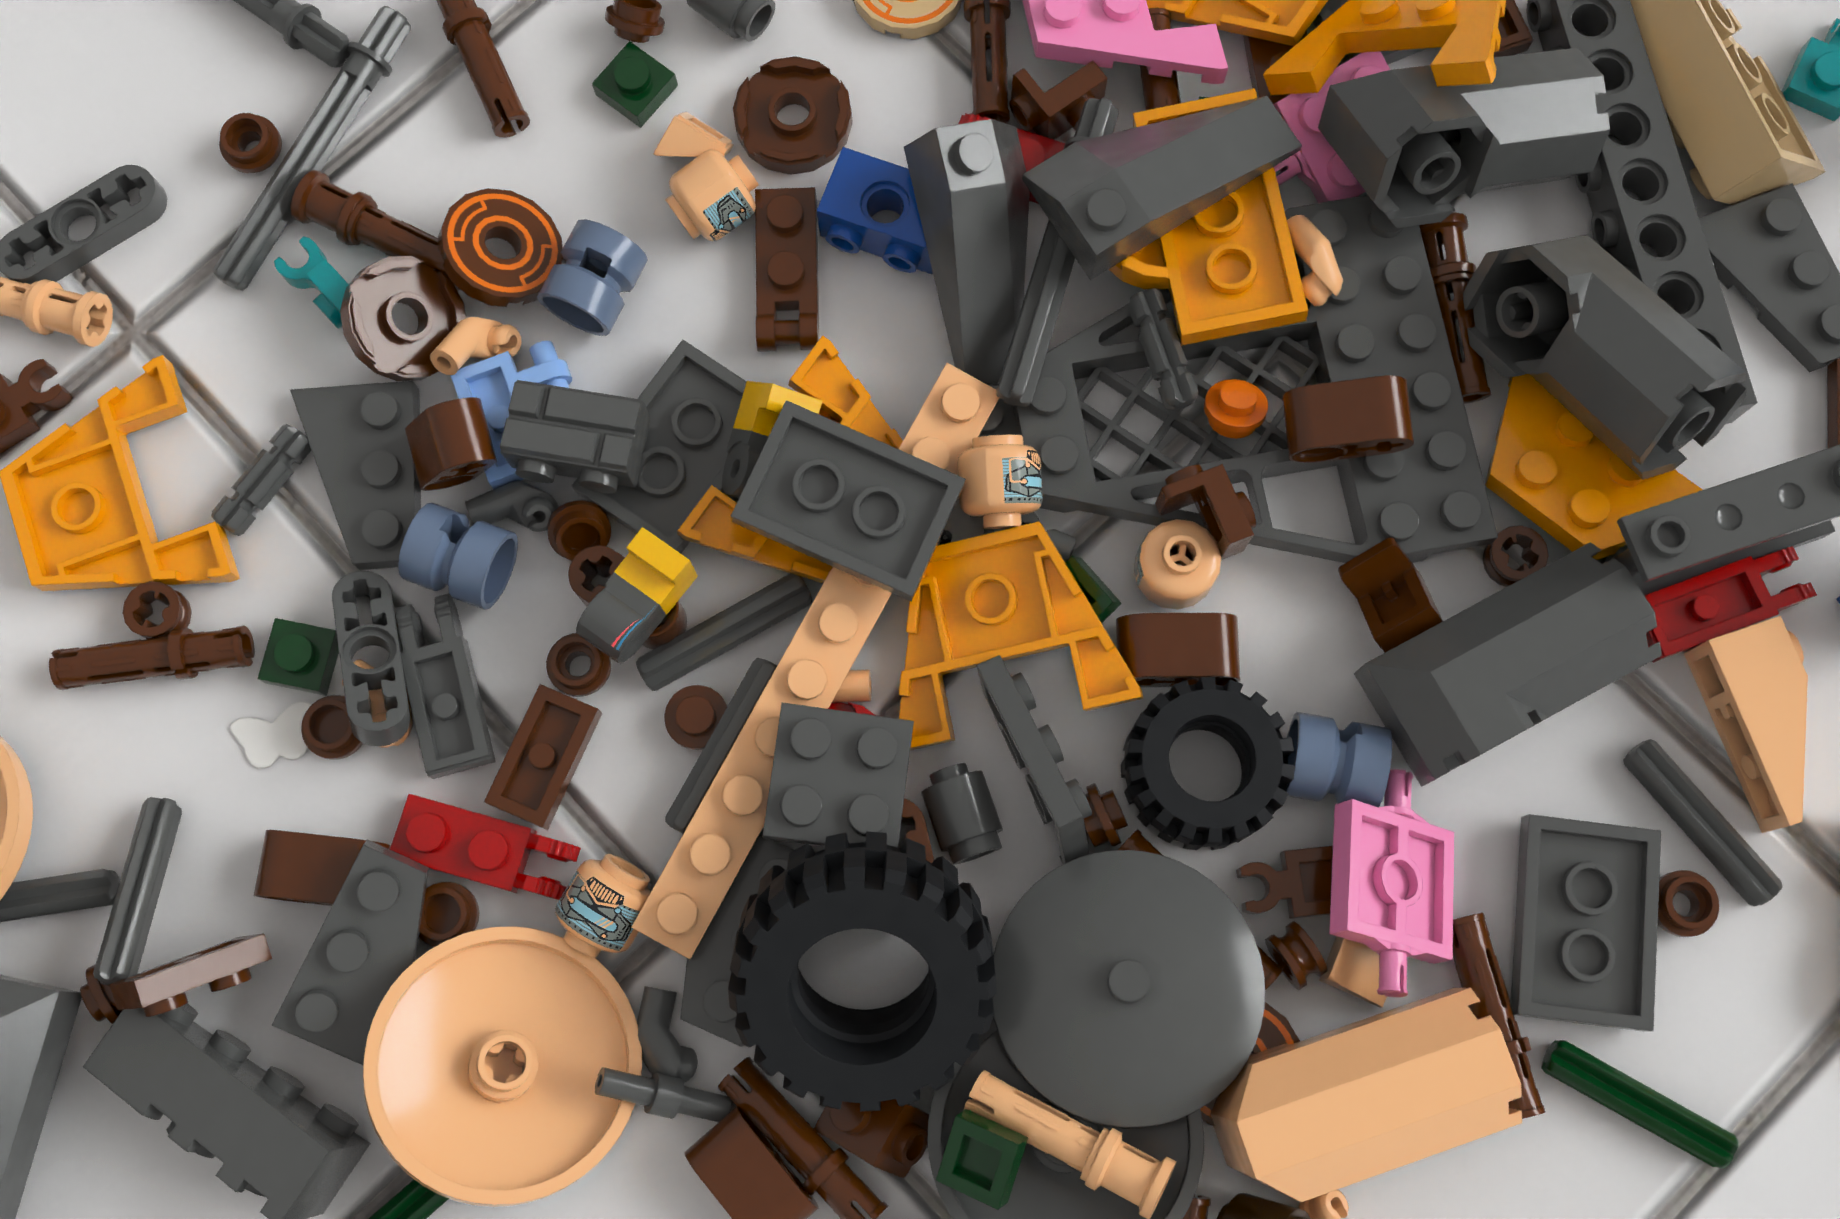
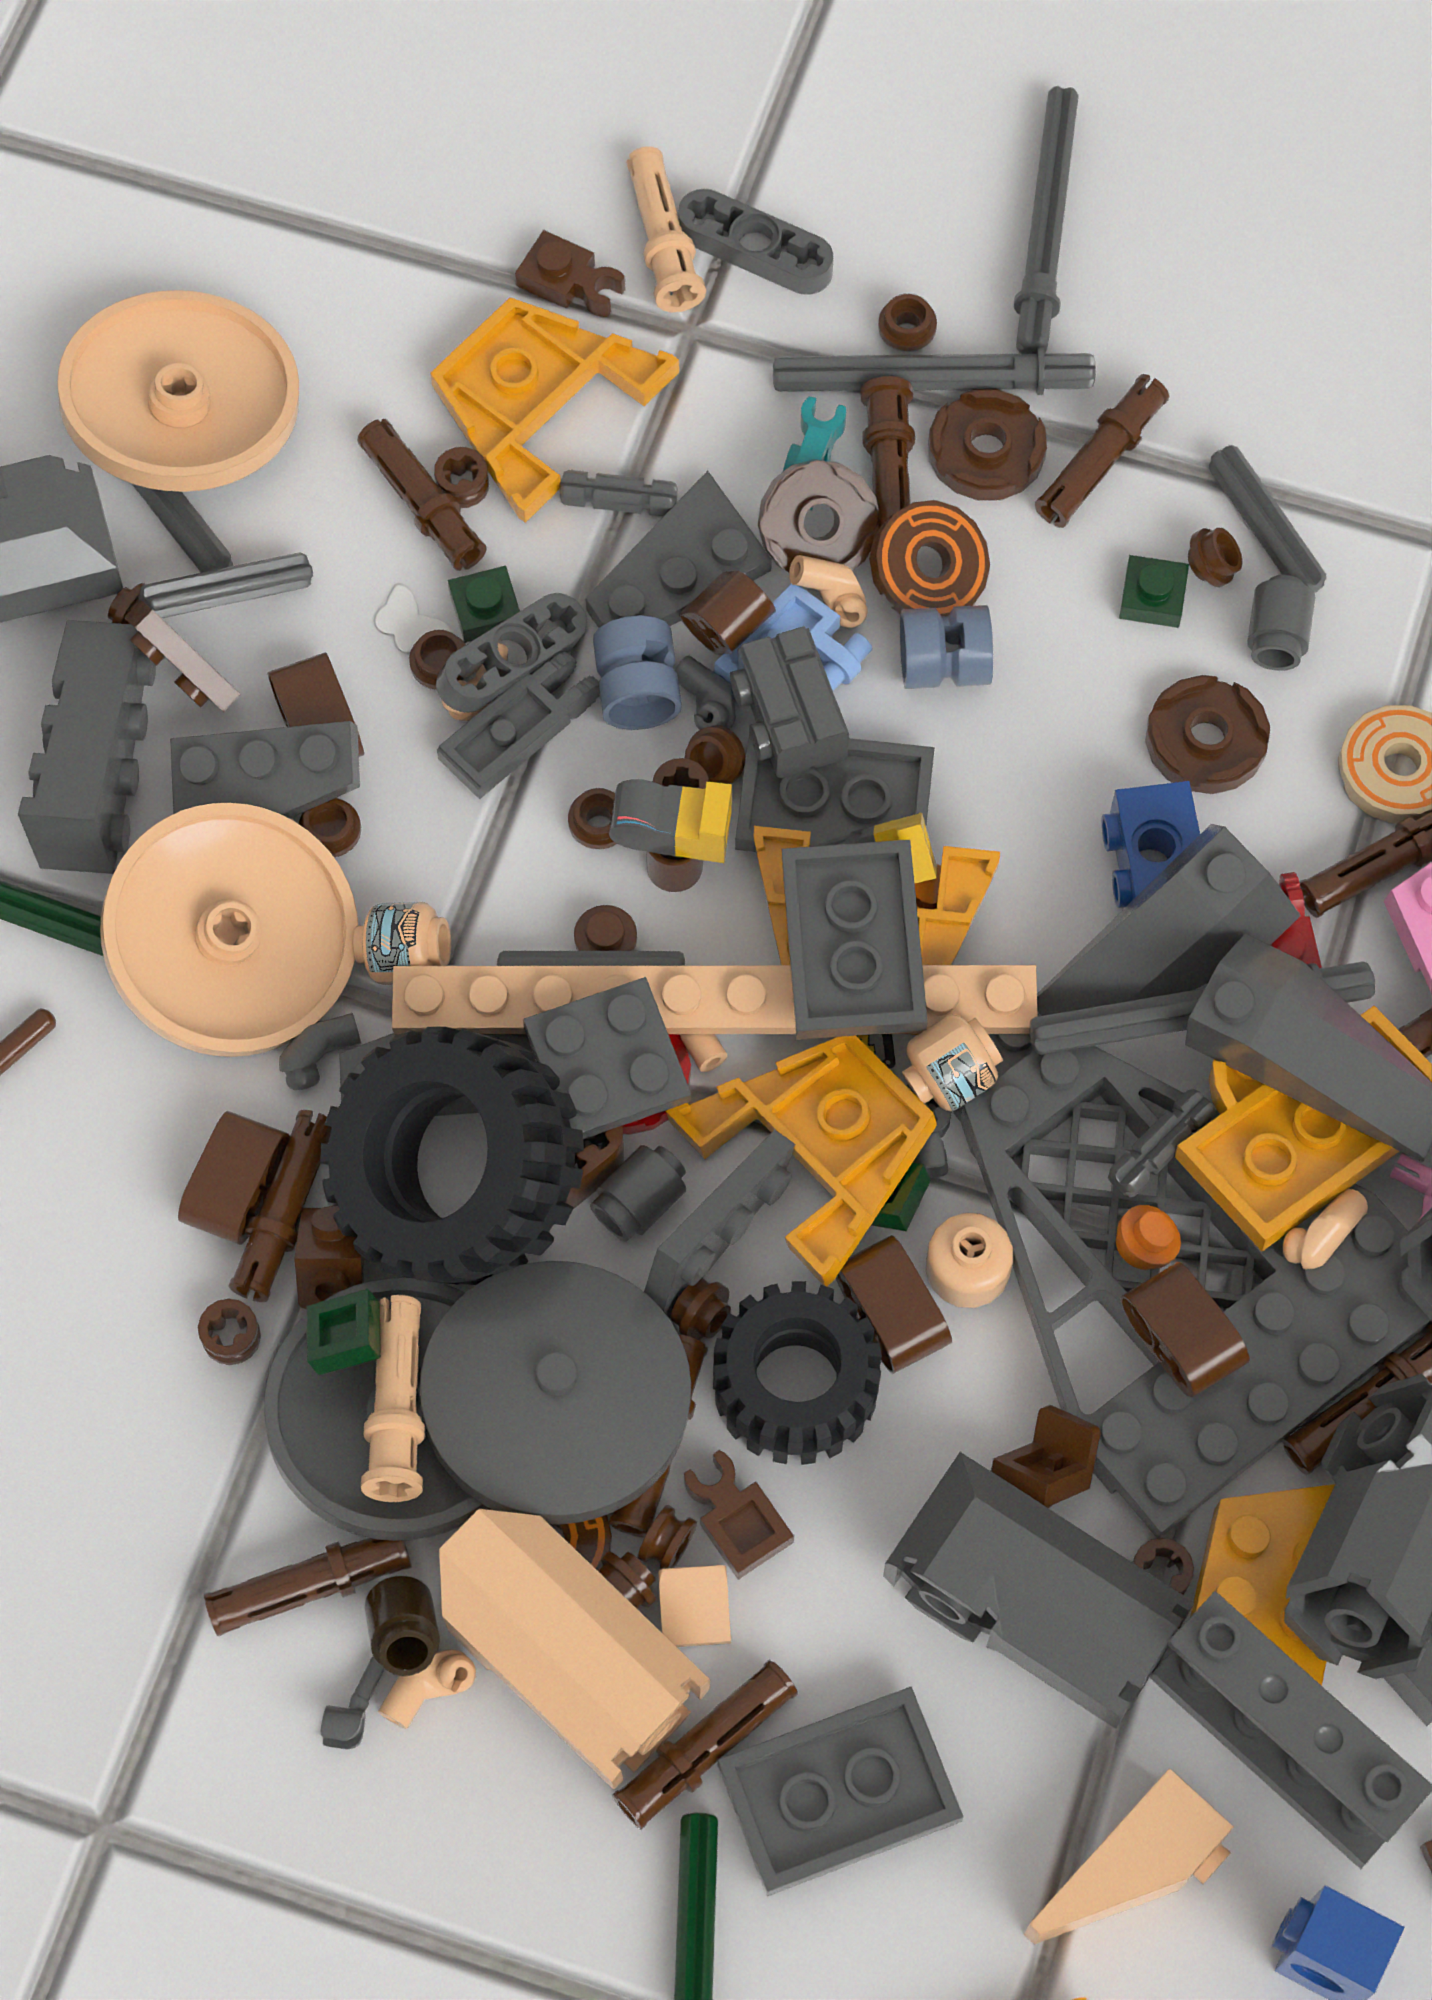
camera: 60 degrees right, 10 degrees down
(416, 173) = (981, 473): none -> reddish brown tile
(476, 846) = (399, 820): red hinge -> none
(543, 757) = (503, 831): reddish brown plate -> none
(662, 1095) = (268, 1068): dark grey bar -> none
(690, 138) = (1127, 661): light nougat slope -> none
(712, 195) = (1082, 703): light nougat head -> none
(724, 631) = (691, 917): dark grey axle -> none
(786, 267) = (1054, 802): reddish brown plate -> none
(1058, 108) = (1353, 944): reddish brown bracket -> none
(1223, 512) = (1033, 1264): reddish brown bracket -> none
(1318, 1011) = (629, 1578): none -> reddish brown plate
(1338, 762) = (861, 1479): sand blue wheel -> none
(1392, 883) = (777, 1585): bright pink plate -> none
(1702, 898) = (915, 1858): reddish brown plate -> none
(1703, 823) = (997, 1864): dark grey axle -> none
(1721, 602) = (1226, 1780): red hinge -> none

